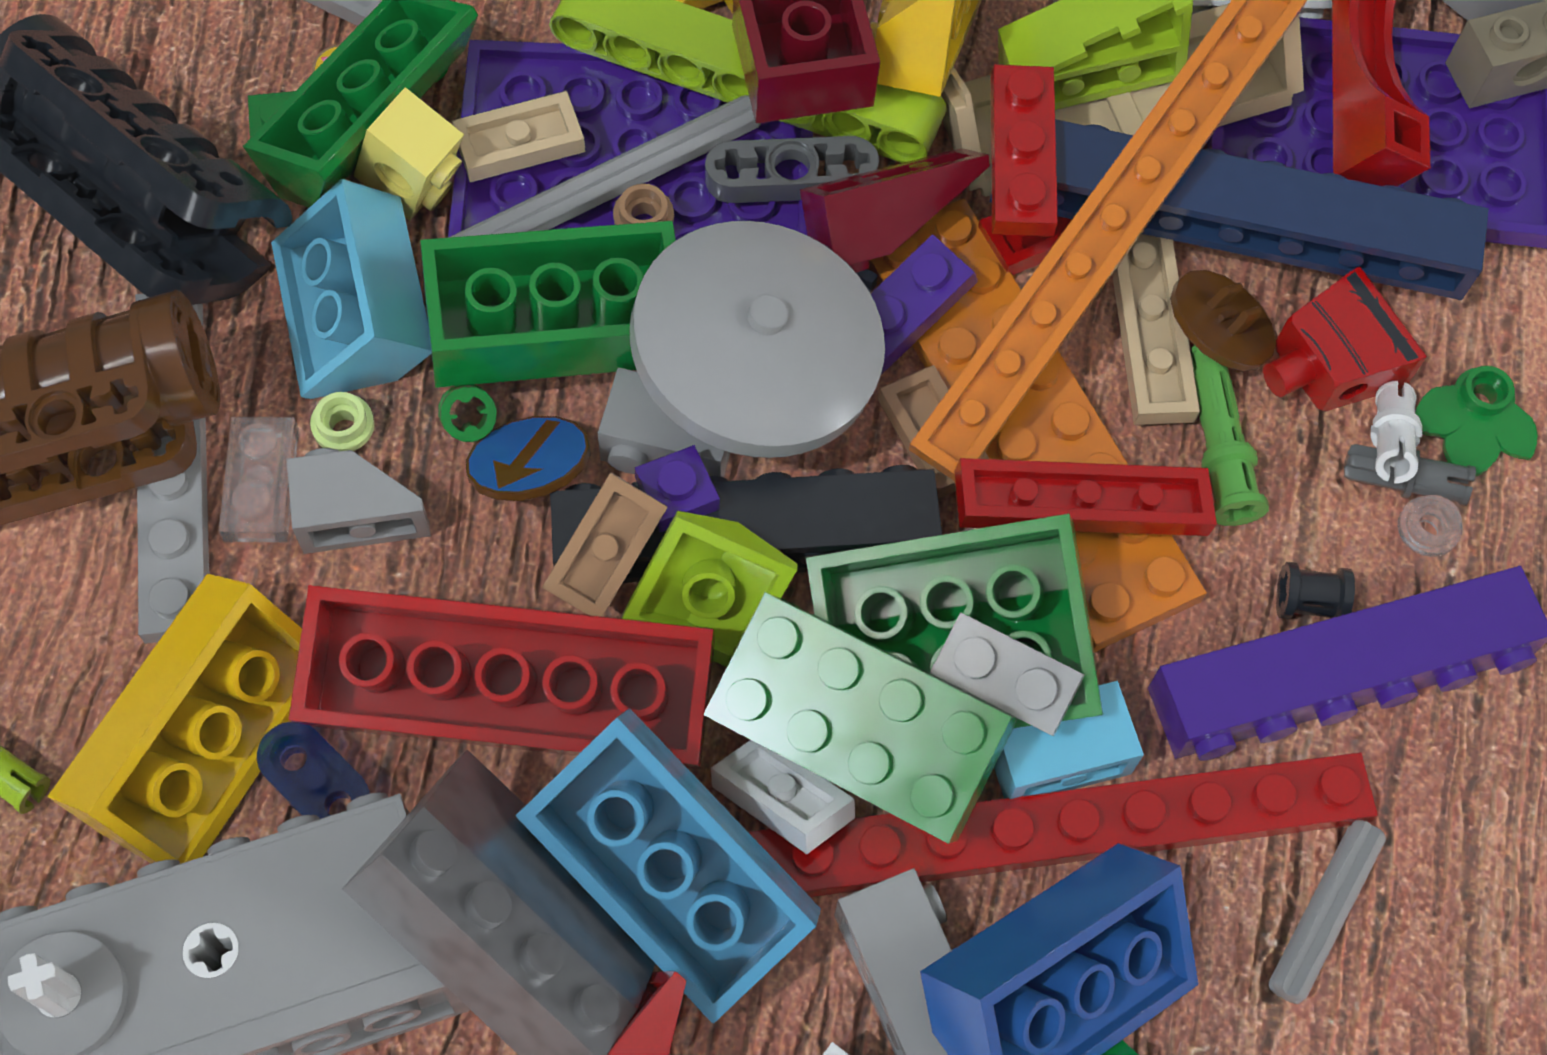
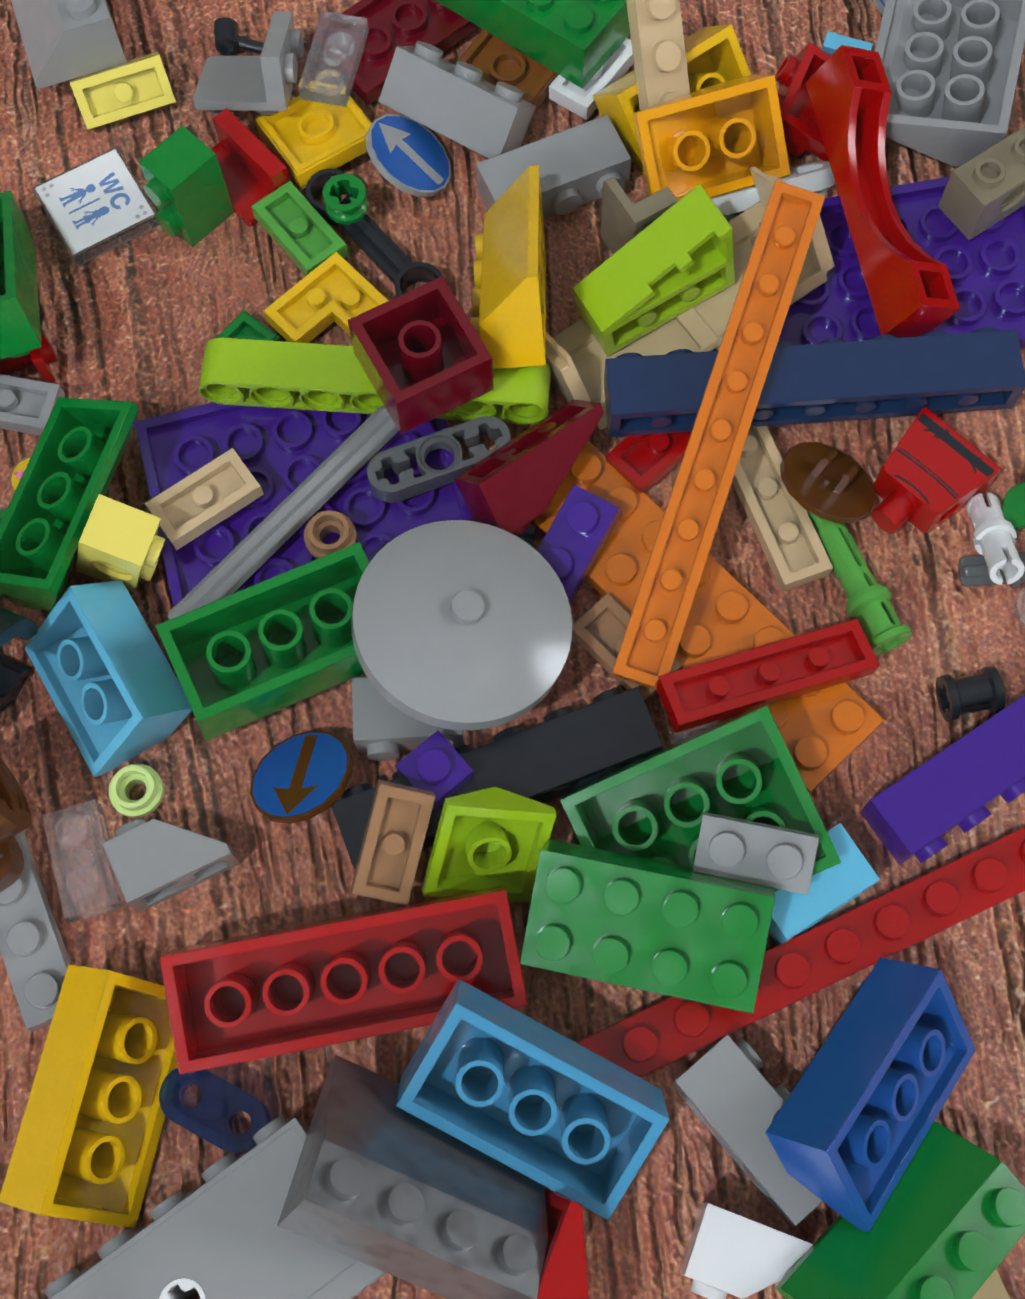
camera: 10 degrees left, 5 degrees up
(469, 431) = (244, 764): green bush -> none
(783, 795) = (602, 1007): white plate -> none
(1023, 150) = (628, 392): red plate -> none

